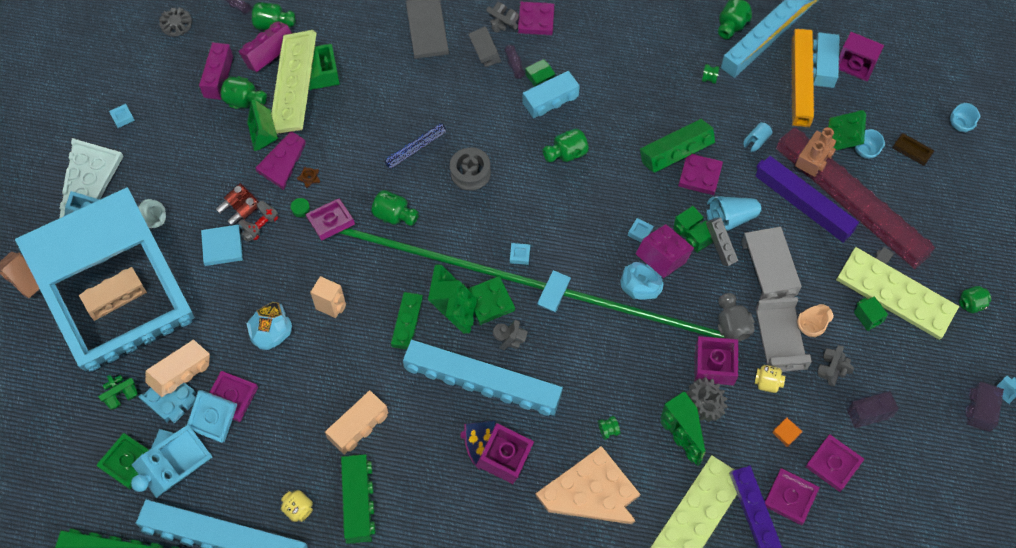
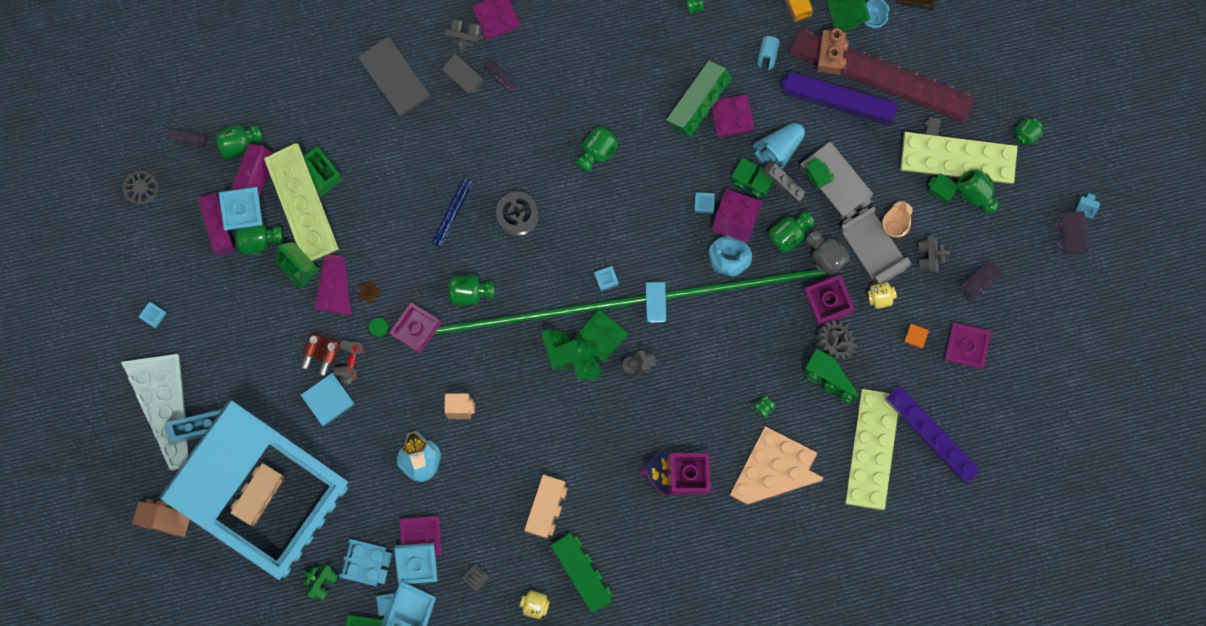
camera: 20 degrees left, 15 degrees up
(153, 213) = (247, 399): light aqua hair -> none
(177, 368) = (363, 536): light nougat brick -> none
(240, 61) = (240, 208): none -> medium azure tile
(258, 456) = (475, 577): none -> dark grey tile
(407, 320) = (537, 391): green plate -> none
(482, 377) = (633, 413): medium azure brick -> none
(539, 73) = (531, 78): green piece -> none
(551, 94) = (554, 98): medium azure brick -> none
(707, 287) = (790, 232): none -> green piece
(757, 245) = (818, 173): none -> green brick
(791, 496) = (943, 393): magenta plate -> none
(905, 325) = (978, 190): none -> green piece

